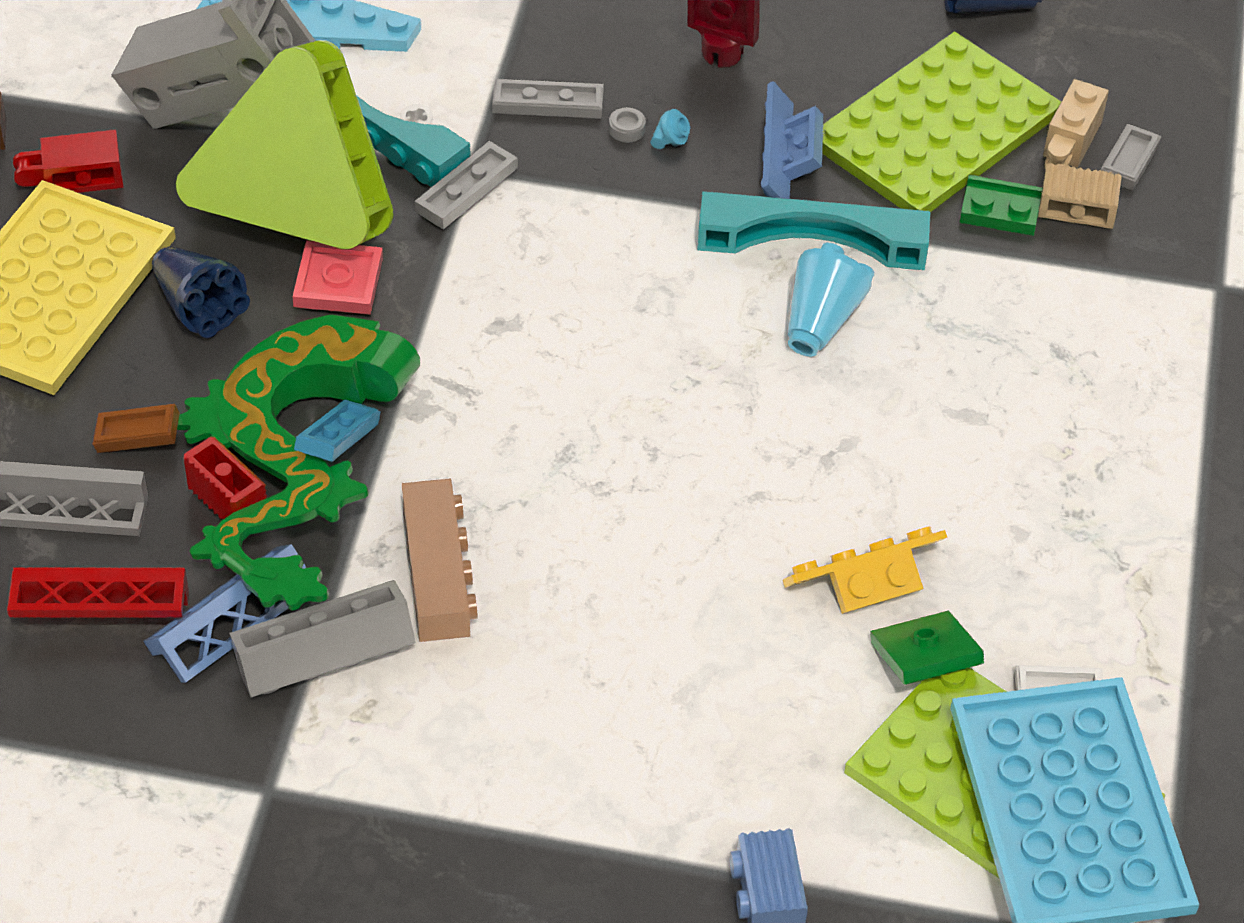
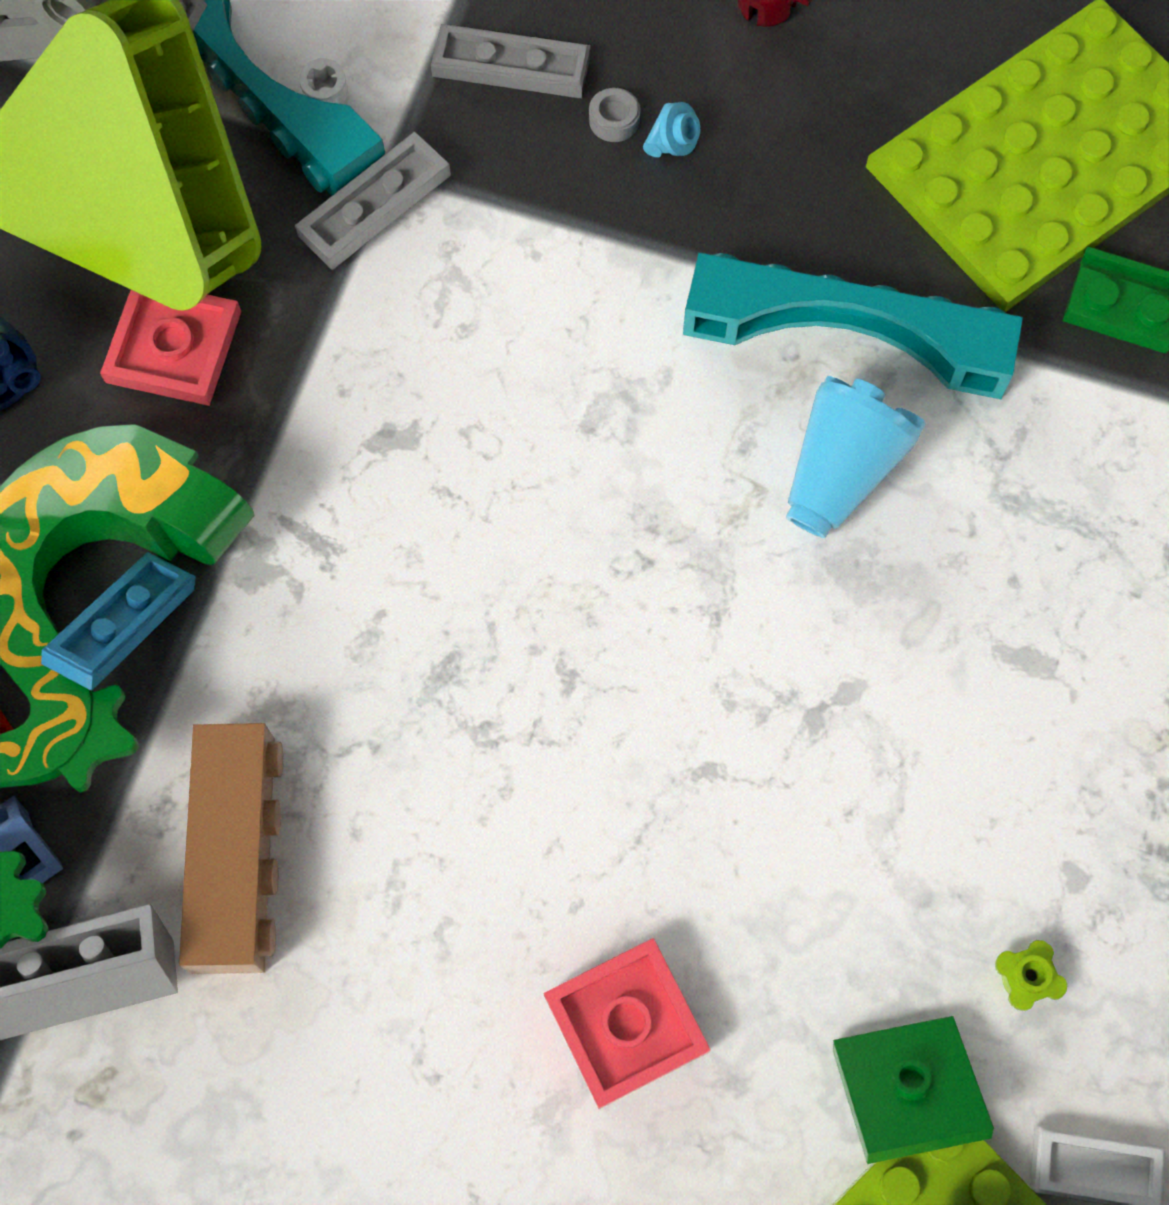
camera: 10 degrees right, 20 degrees up
(728, 633) = (626, 1023): none -> coral plate
(791, 143) = (838, 173): medium blue bracket -> none
(872, 576) = (850, 937): yellow bracket -> none
(995, 593) = (1021, 990): none -> lime plate

